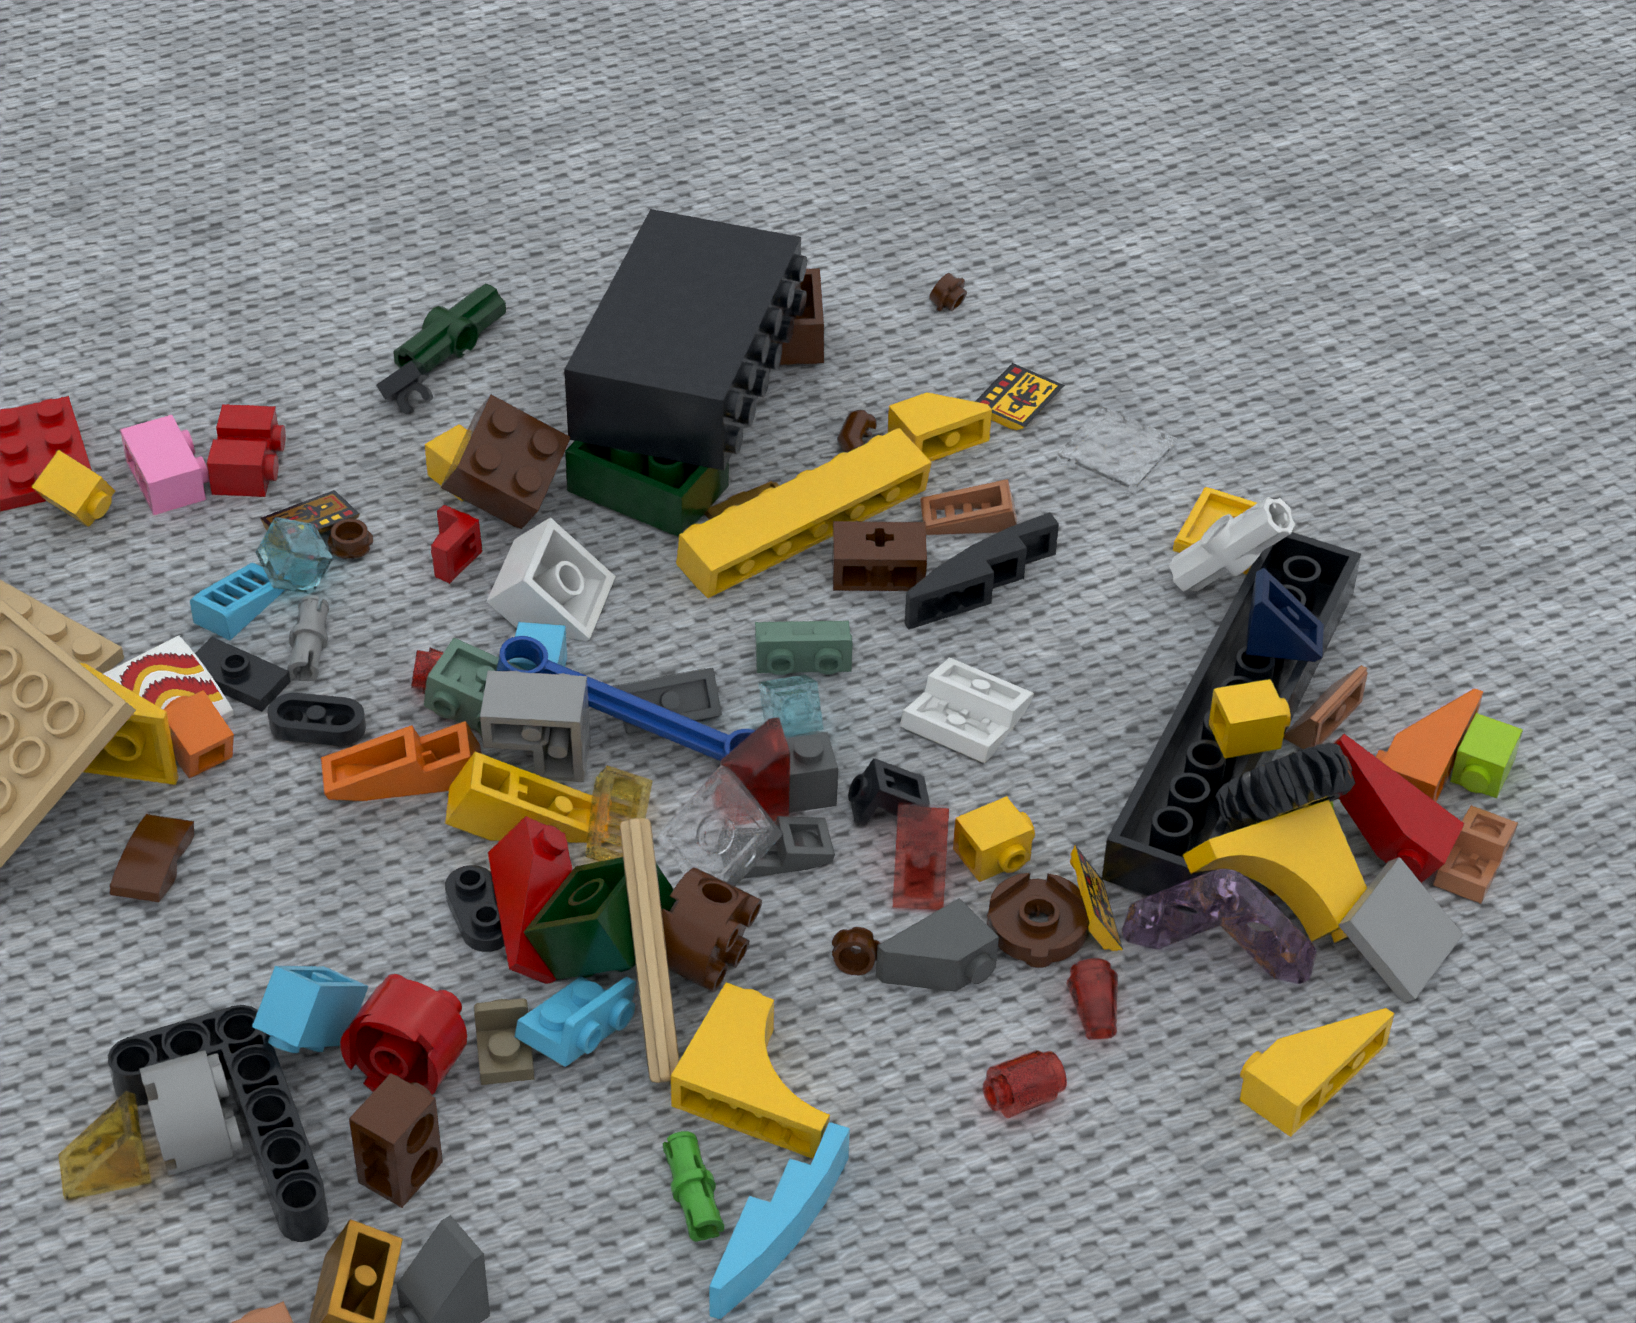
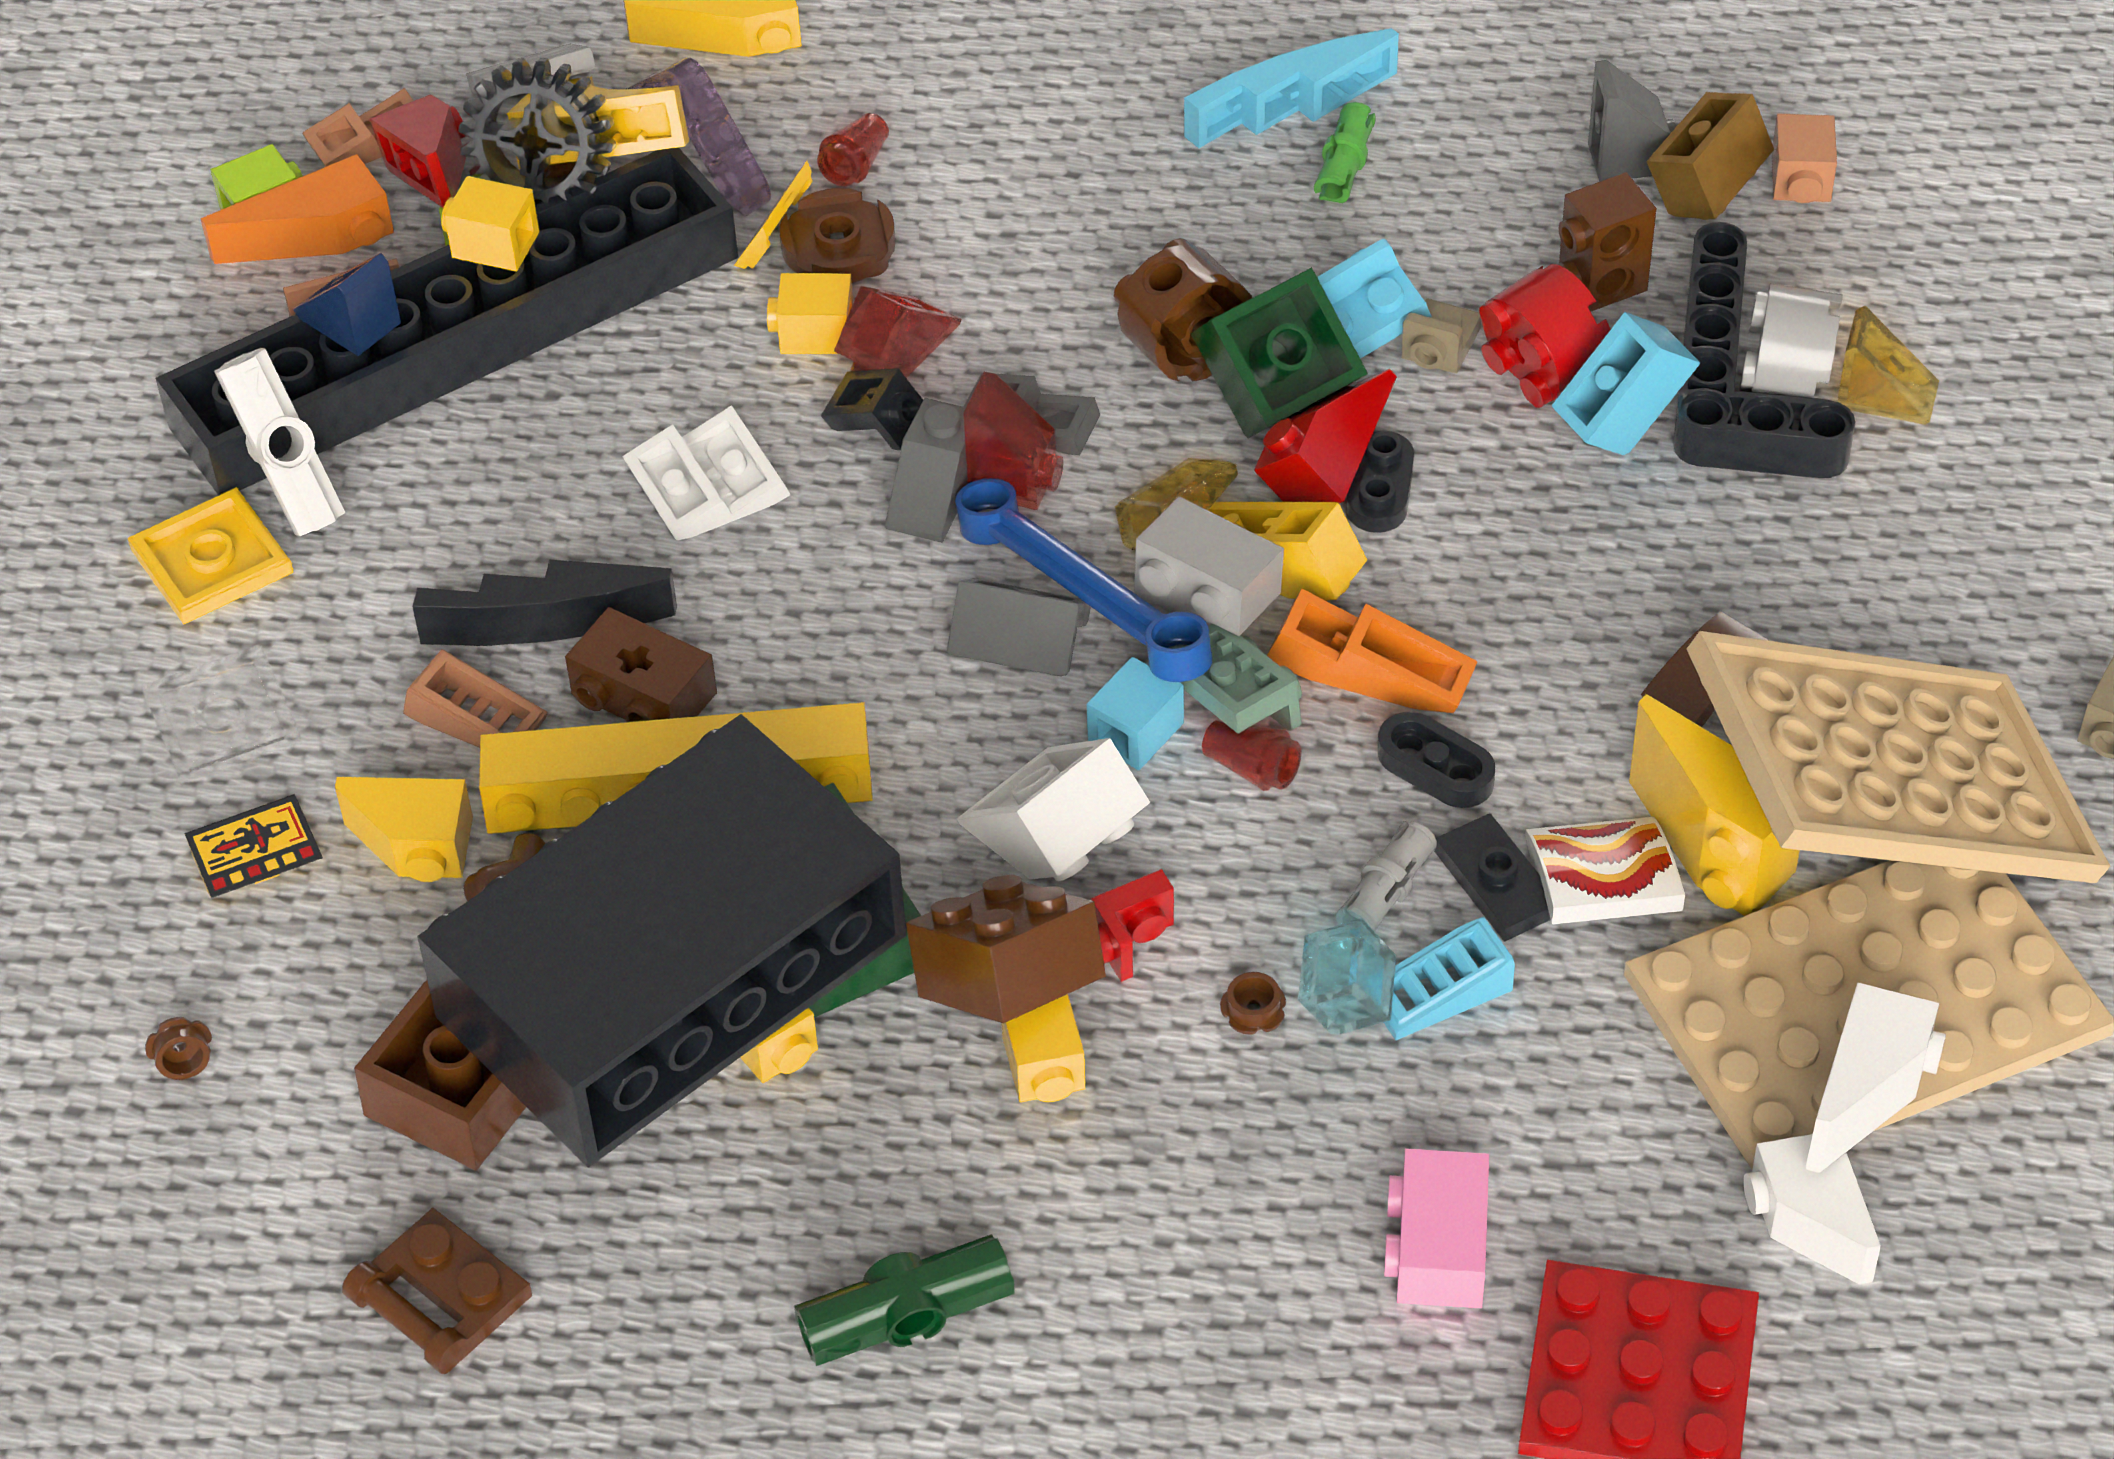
camera: 145 degrees left, 5 degrees up
(74, 489) = (1590, 1213): yellow brick -> none
(198, 733) = (1593, 777): orange brick -> none
(245, 450) = (1320, 1203): red brick -> none
(321, 510) = (1285, 1061): piece -> none
(403, 383) = (1035, 1211): black tile -> none
(649, 949) = (1262, 274): tan axle -> none
(720, 829) = (1092, 411): clear tile -> none
(732, 1081) = (1250, 204): yellow arch -> none
(794, 702) = (904, 515): clear light blue brick -> none
(803, 647) = (819, 613): sand green bracket -> none
(853, 960) = (1037, 278): reddish brown plate -> none
(940, 951) = (965, 236): dark grey slope -> none
(1024, 1082) = (985, 107): clear red brick -> none

